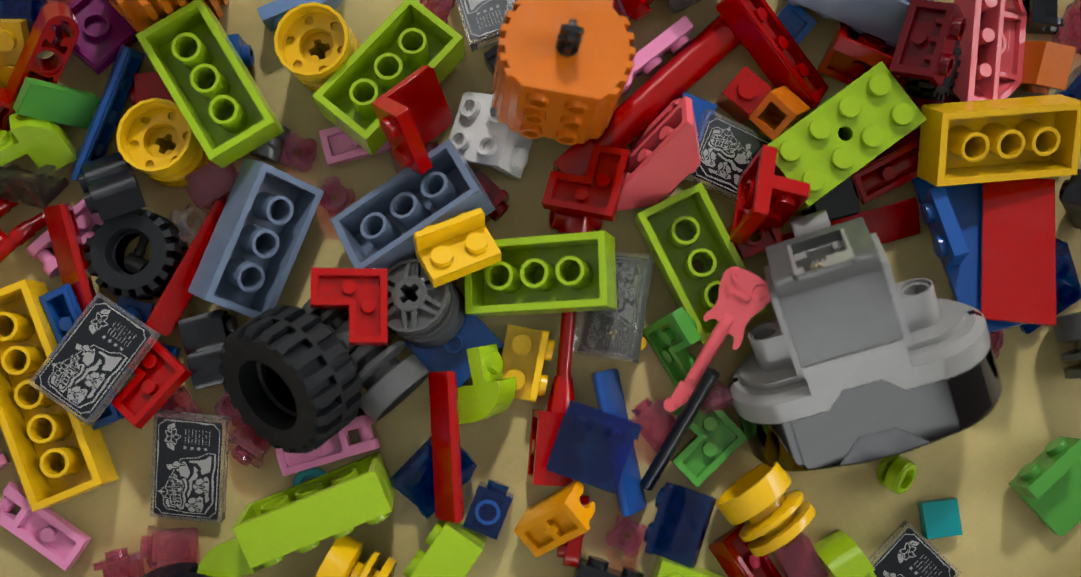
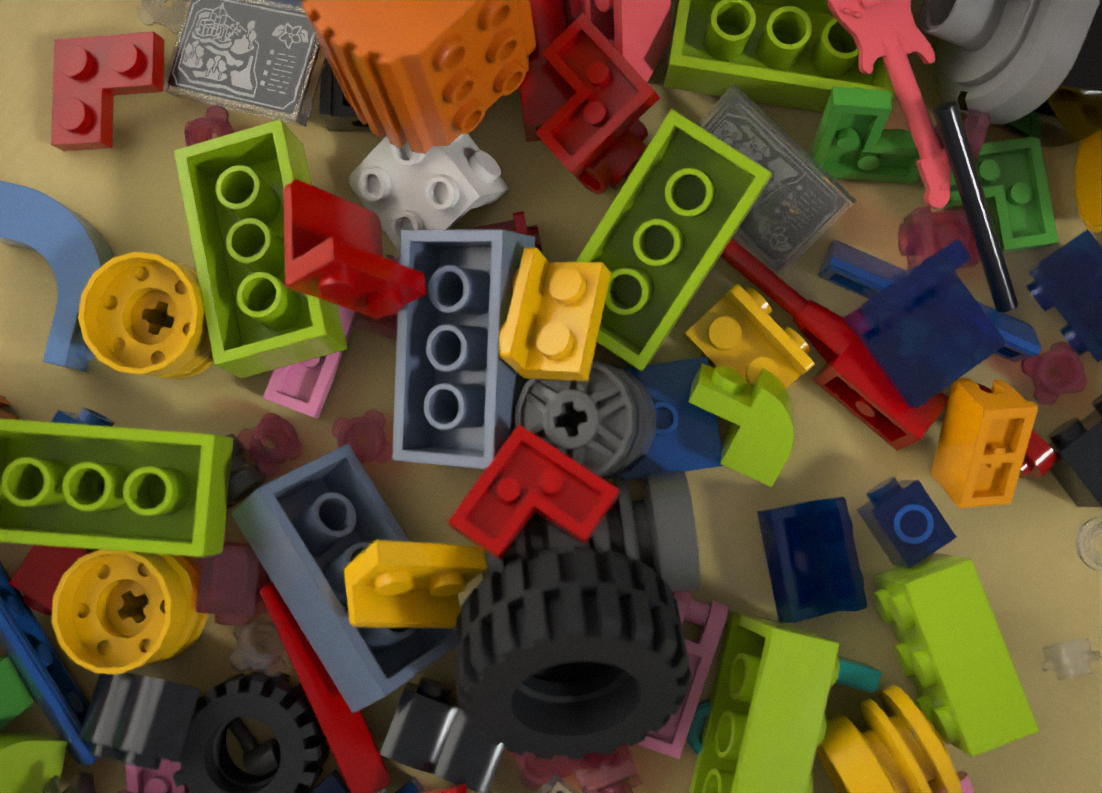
camera: 55 degrees left, 0 degrees up
(268, 272) = (410, 583): none -> yellow bracket
(389, 534) = (858, 675): none -> teal tile
(446, 446) = (797, 515): red slope -> none

